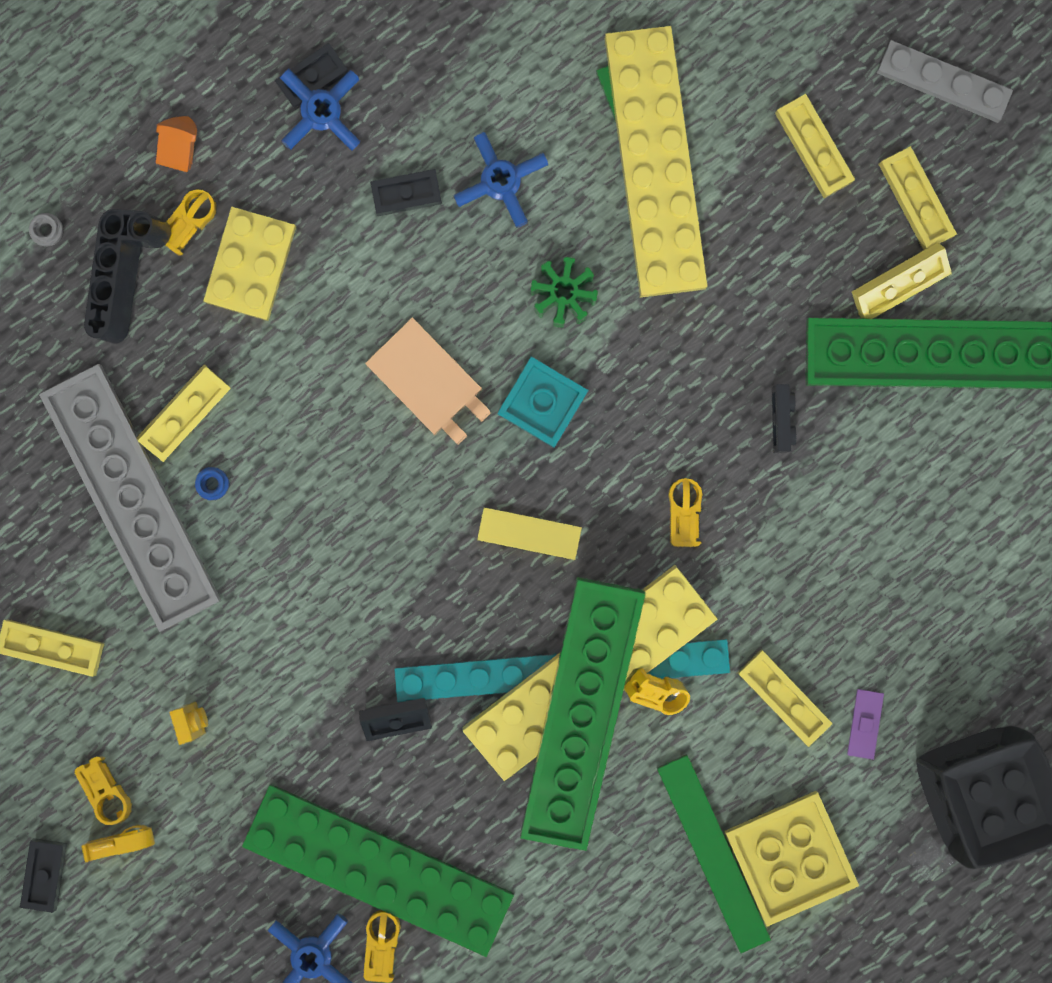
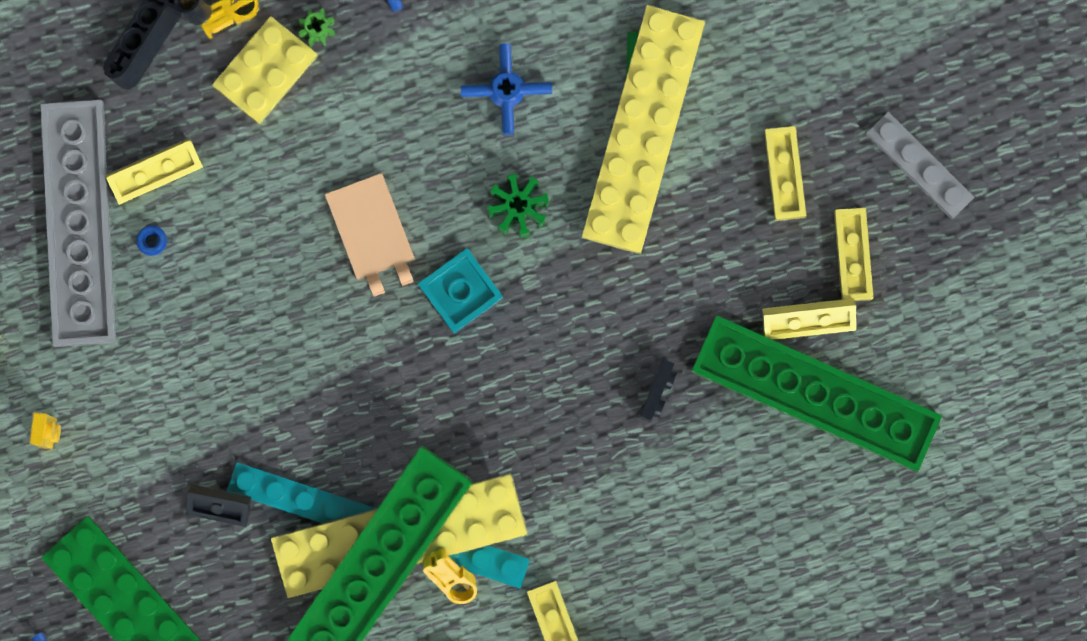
camera: 20 degrees right, 5 degrees down
(285, 189) = (309, 31): none -> bright green gear
(406, 192) = (422, 66): black plate -> none
(529, 533) = (401, 397): light yellow tile -> none
(684, 520) = (538, 441): yellow piece -> none

